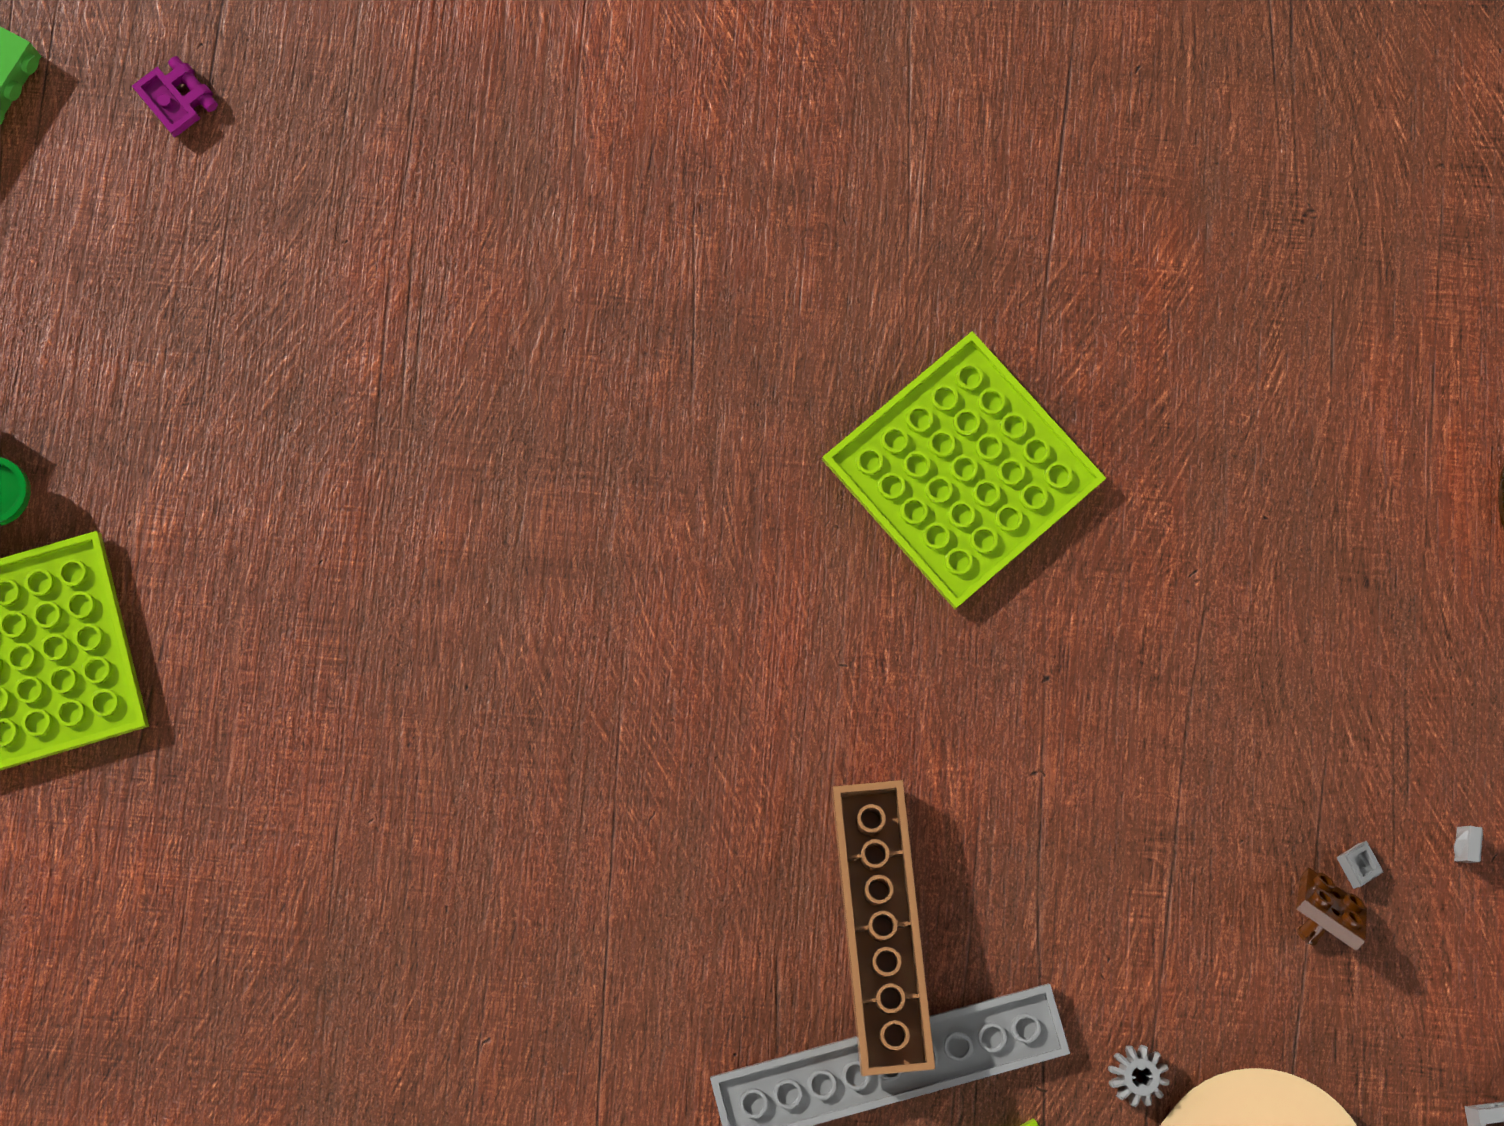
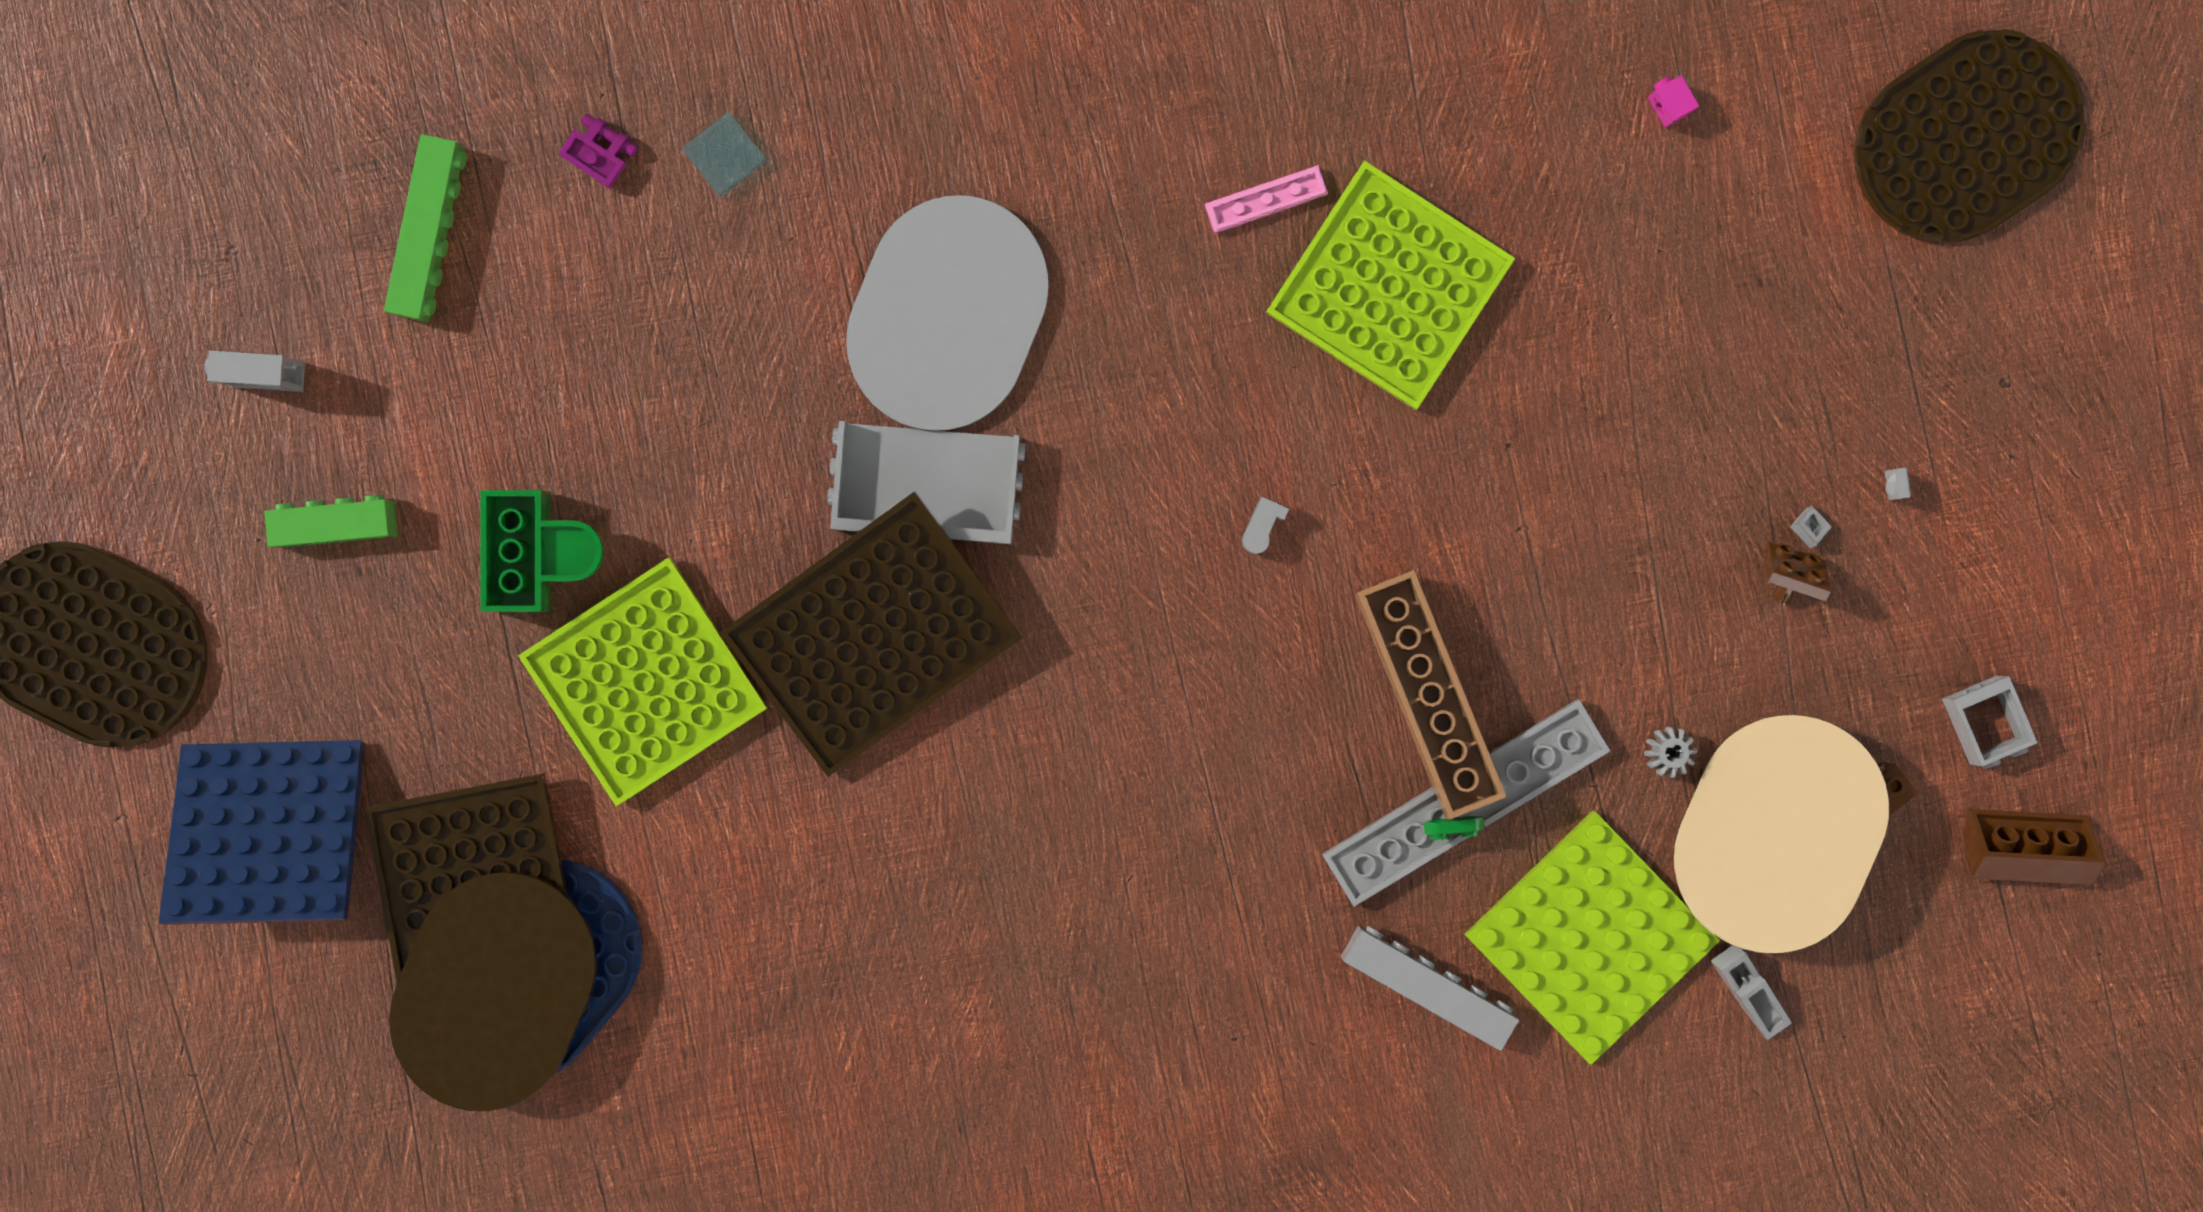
camera: 20 degrees left, 10 degrees up
(284, 677) = (871, 634): none -> dark brown plate
(304, 137) = (724, 154): none -> clear light blue tile
(399, 533) = (959, 476): none -> light grey panel
(482, 364) = (947, 313): none -> light grey tile
(741, 693) = (1256, 535): none -> light grey leg
(852, 1085) = (1441, 828): none -> green plate
(857, 343) = (1266, 199): none -> bright pink tile
(1318, 363) = (1672, 100): none -> dark pink brick

